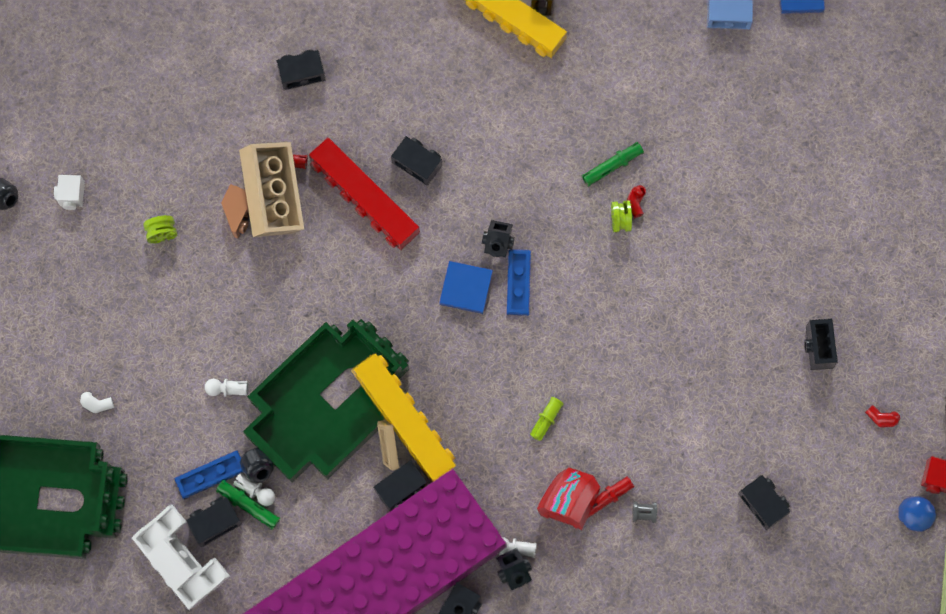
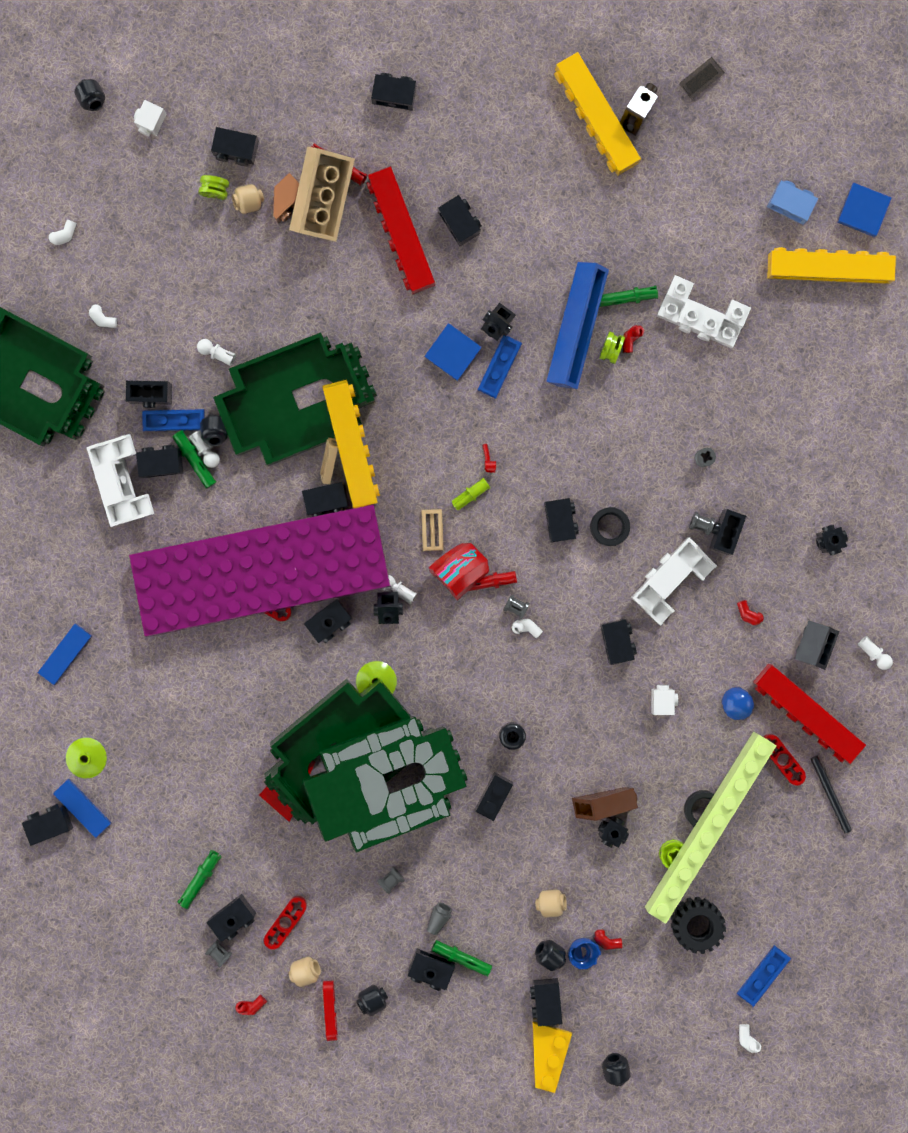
camera: 25 degrees right, 15 degrees up
(26, 339) = (63, 236): none -> white arm
(165, 183) = (234, 146): none -> black brick
(174, 455) = (149, 393): none -> black brick
(198, 226) = (247, 199): none -> tan head
(539, 486) = (432, 530): none -> tan tile
(553, 382) = (490, 466): none -> red hand
(578, 210) = (577, 325): none -> blue brick
(649, 405) = (560, 520): none -> black brick
(663, 527) = (526, 625): none -> white arm
(694, 154) = (699, 318): none -> white bracket
(707, 374) = (610, 511): none -> black tyre
(768, 278) = (711, 455): none -> dark grey bush
(783, 414) = (668, 576): none -> white bracket
(791, 348) = (702, 523): none -> dark grey bush
(795, 54) = (831, 266): none -> yellow brick
(840, 542) = (663, 700): none -> white brick
(924, 314) = (824, 540): none -> black brick

